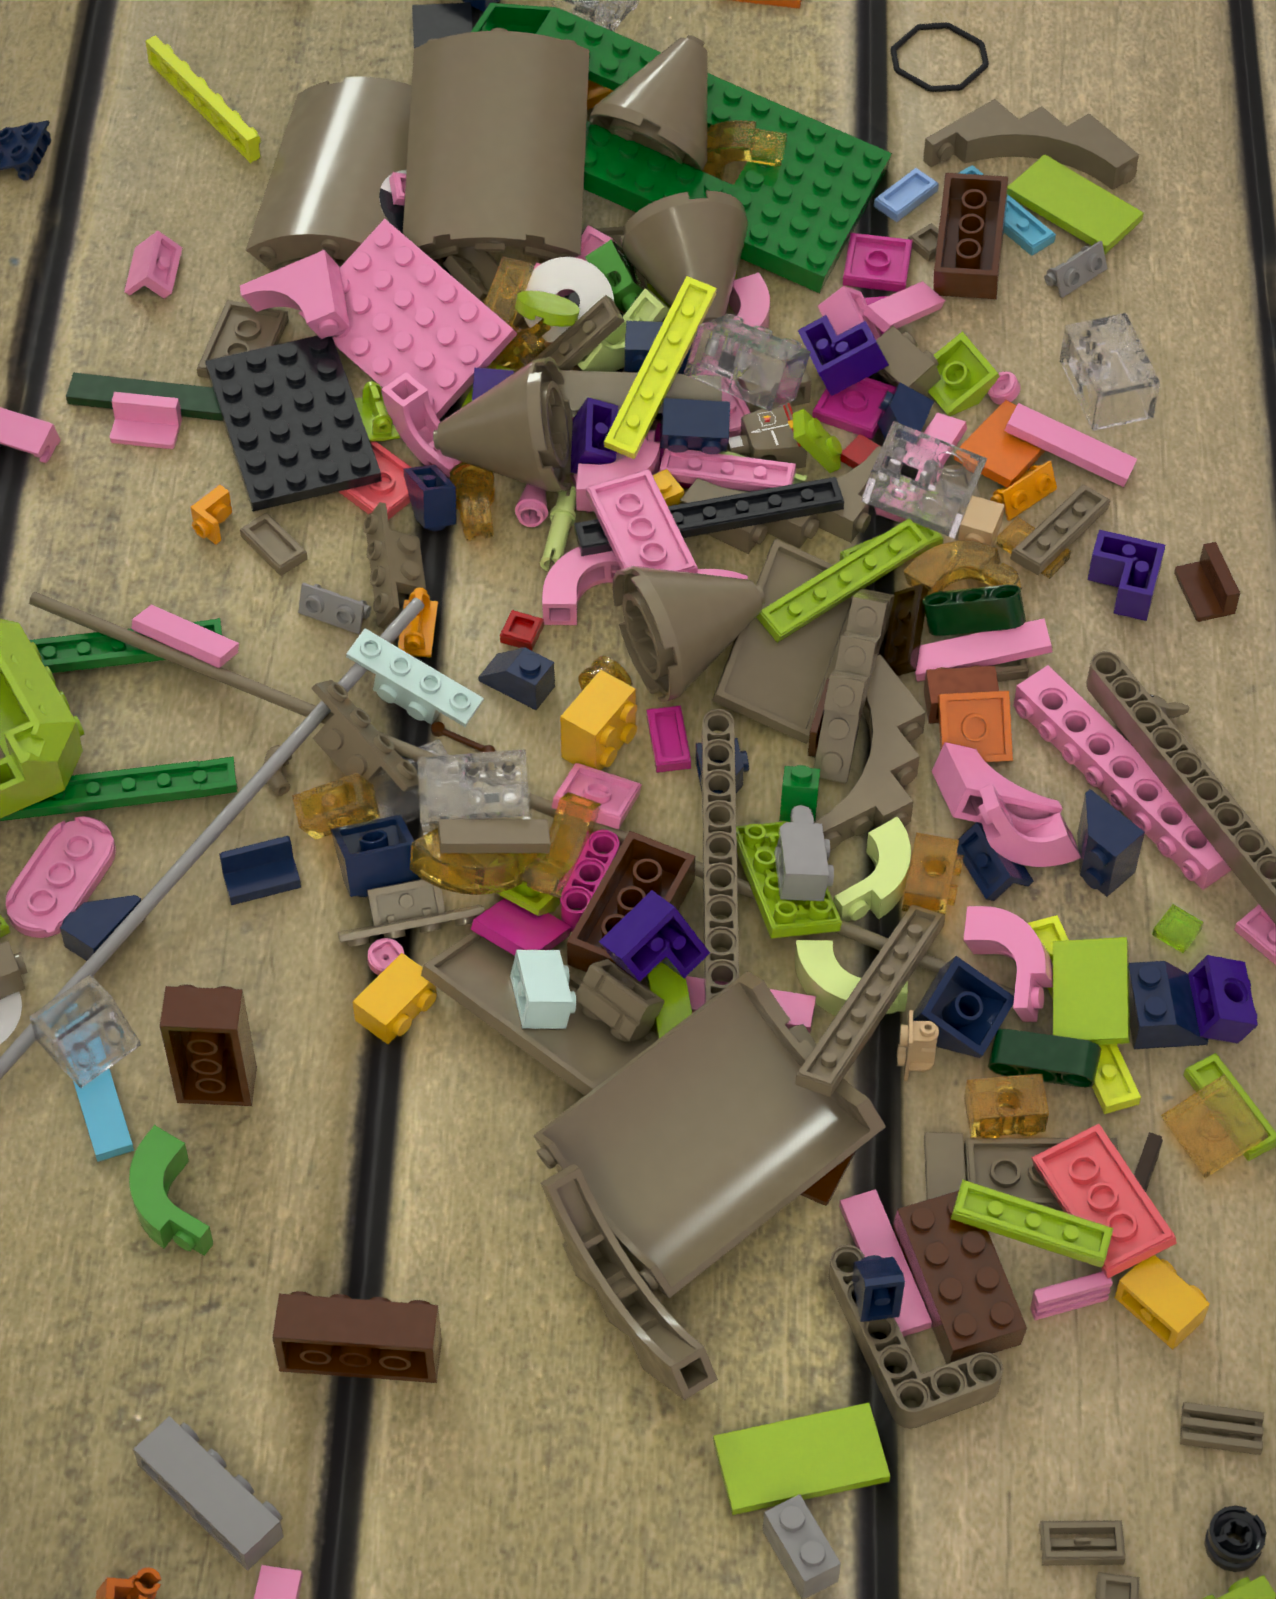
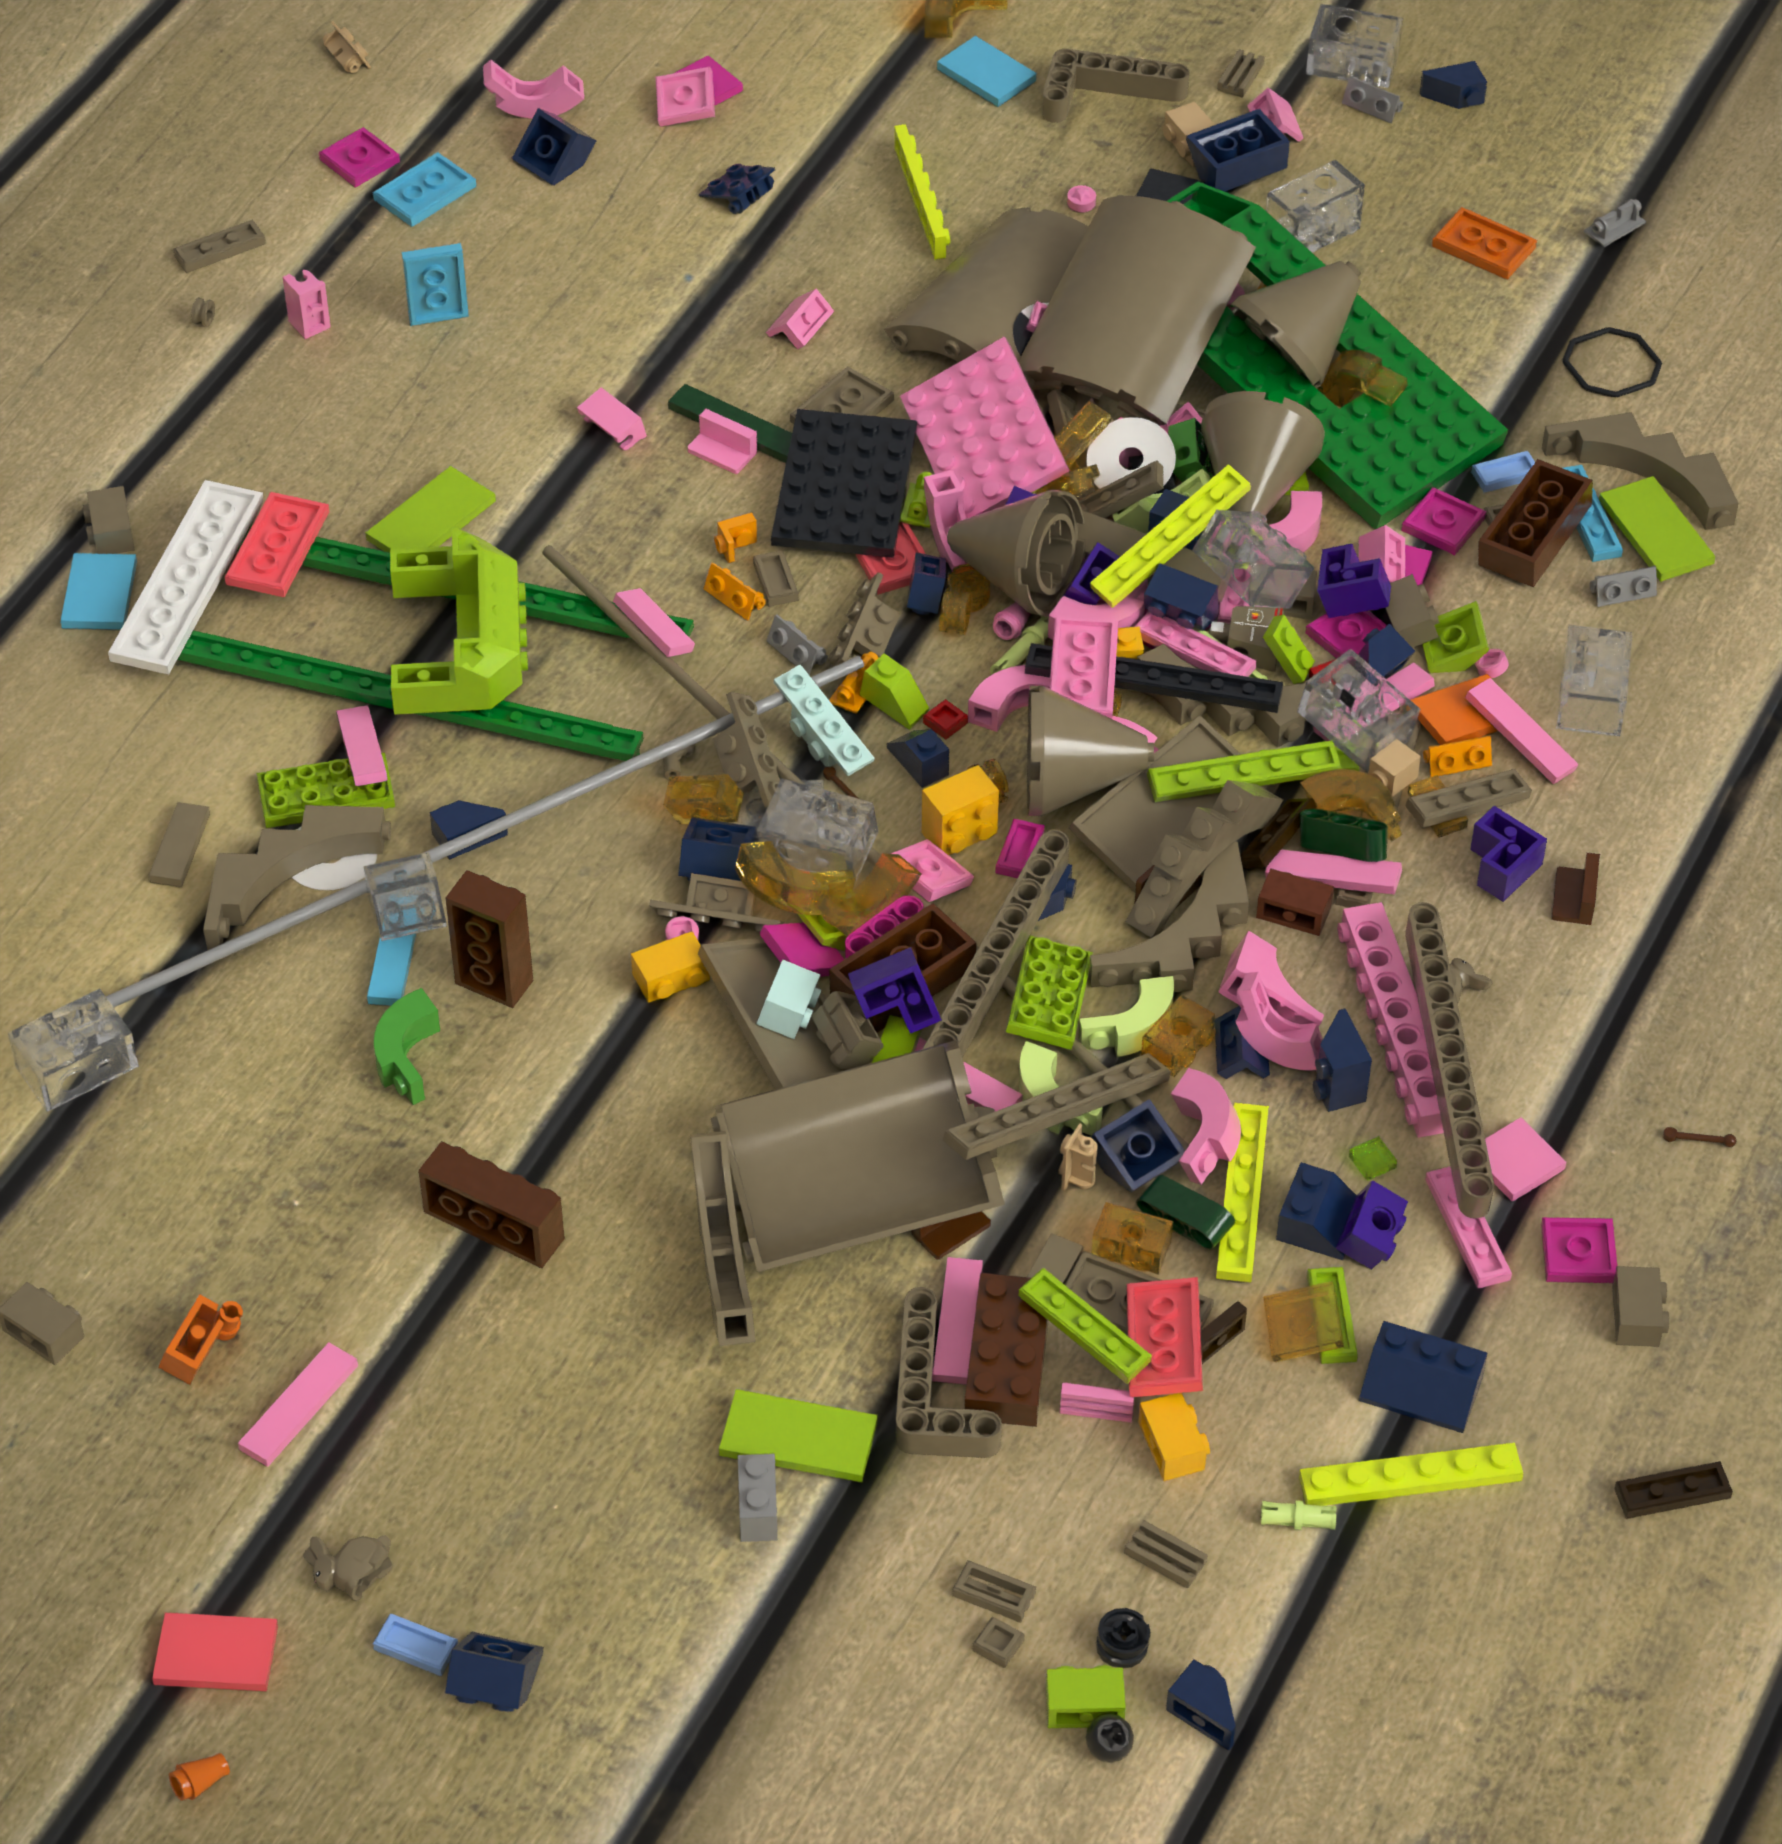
camera: 25 degrees right, 5 degrees down
(60, 876) = (459, 773): bright pink tile -> none
(209, 1492) = (317, 1274): light grey brick -> none
(239, 574) = (732, 591): none -> light orange hinge
(259, 870) = (617, 828): dark blue panel -> none
(306, 285) = (912, 373): bright pink arch -> none
(361, 56) = (1081, 198): none -> bright pink tile
(461, 621) = (894, 691): none -> lime slope
(494, 836) = (811, 863): dark tan tile -> none
(551, 307) = (1104, 455): lime tile -> none
(799, 788) = (1100, 927): green slope -> none
(803, 858) = (1065, 975): light grey hinge -> none
(878, 1288) = (925, 1325): dark blue slope -> none
(904, 307) = (1439, 564): bright pink tile -> none
(977, 722) = (1292, 928): orange tile -> none
(1091, 990) = (1256, 1172): lime tile -> none

